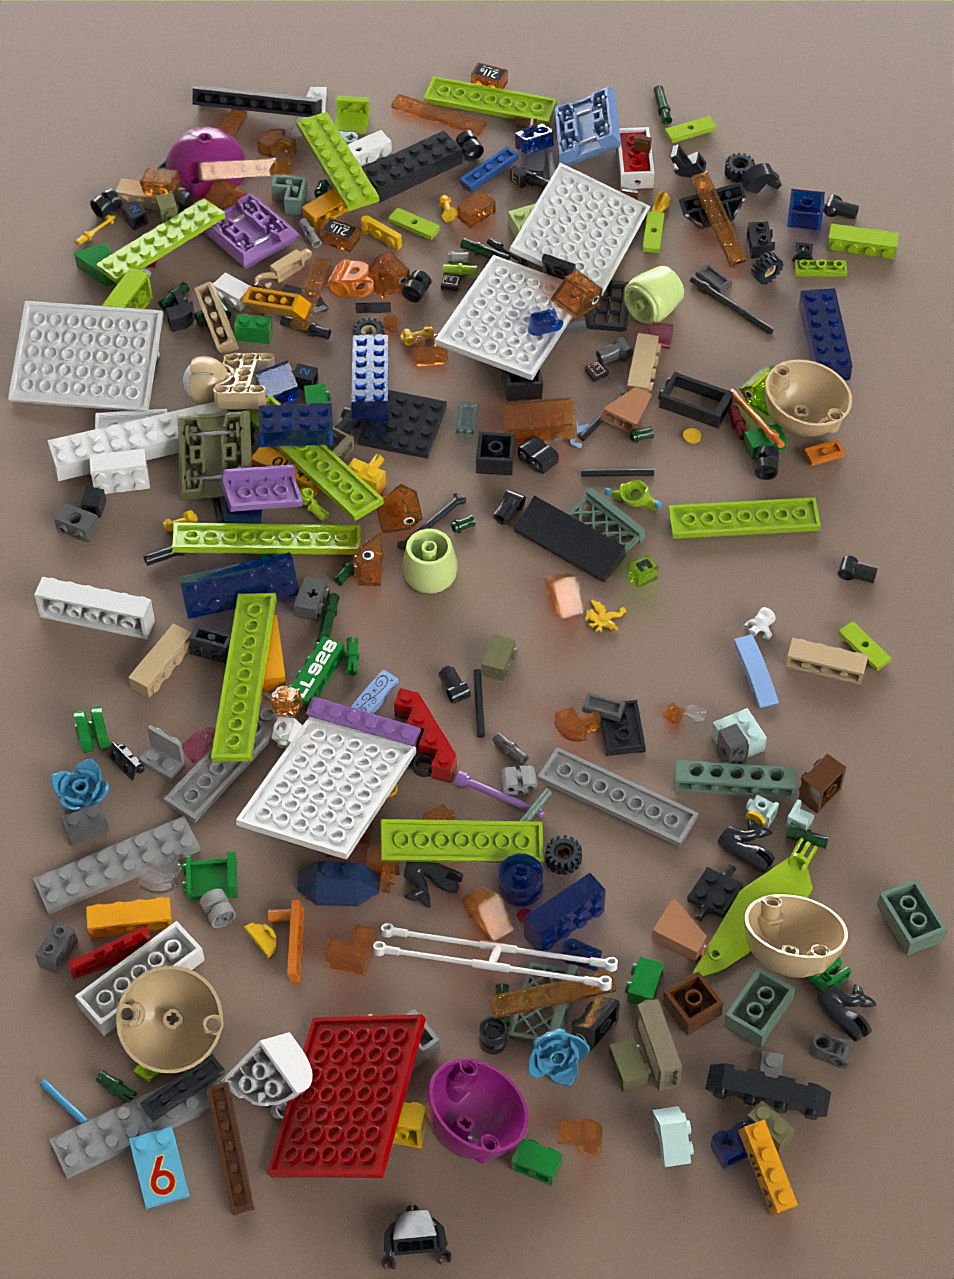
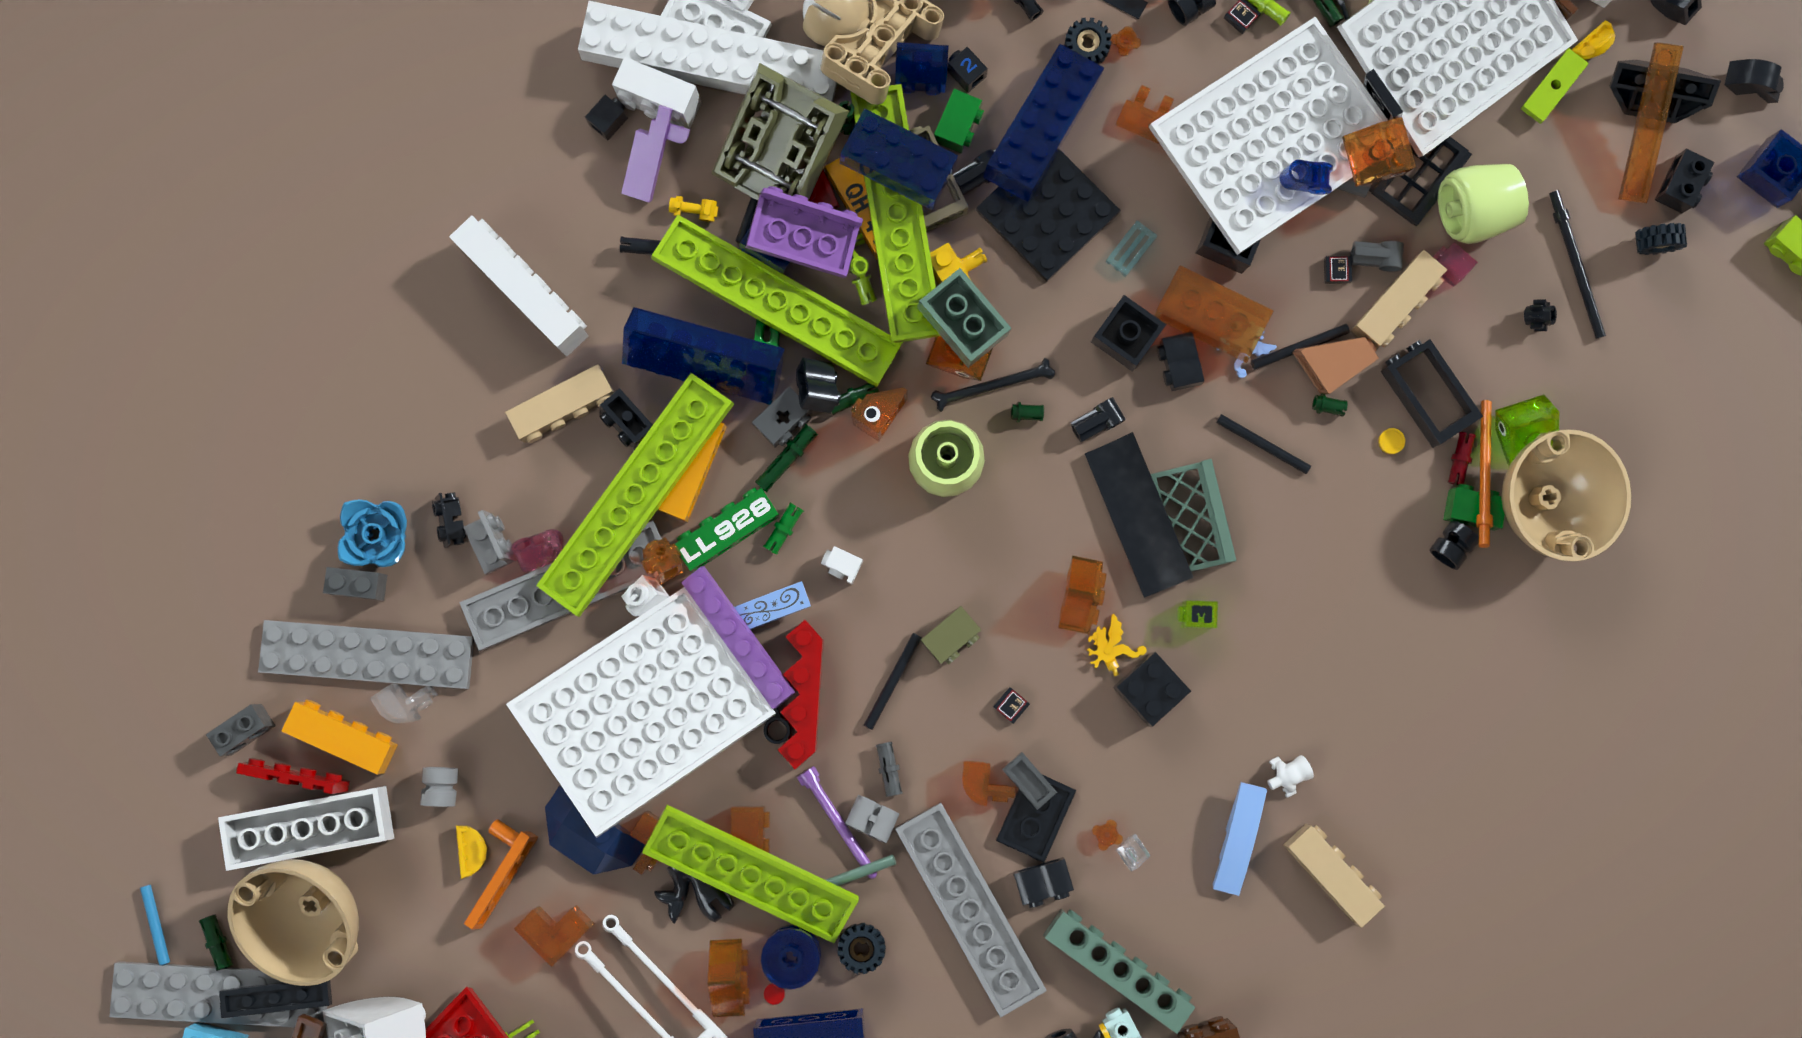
camera: 30 degrees right, 30 degrees up
(76, 522) = (562, 124): dark grey brick -> none
(91, 729) = (424, 462): green wheel -> none
(134, 502) = (648, 154): none -> medium lavender piece
(210, 875) = (456, 737): green panel -> none
(322, 567) = (817, 385): none -> black brick
(391, 478) = (964, 317): none -> sand green brick
(403, 654) = (842, 564): none -> white brick
(408, 337) = (1133, 77): yellow bar -> none
(455, 688) = (876, 647): black piece -> none
(563, 677) = (1011, 705): none -> black tile
(634, 495) = (1259, 498): lime piece -> none
(643, 621) = (1152, 689): none -> black brick
(652, 757) = (1043, 881): none -> black brick
(714, 278) = (1583, 206): dark grey tile -> none
(728, 334) = (1540, 315): none -> black gear
(732, 745) = (1139, 934): dark grey brick -> none
(735, 162) = (1738, 29): black bush -> none
(744, 518) = (1373, 608): lime plate -> none
(749, 728) = (1169, 908): light aqua brick -> none
(803, 251) = (1728, 233): black tile -> none
(821, 268) = (1721, 265): lime tile -> none
(824, 452) = (1538, 569): orange plate -> none
(825, 330) = (1664, 388): clear blue brick -> none
(852, 568) = (1453, 762): black piece -> none
(864, 644) = (1395, 897): lime tile -> none

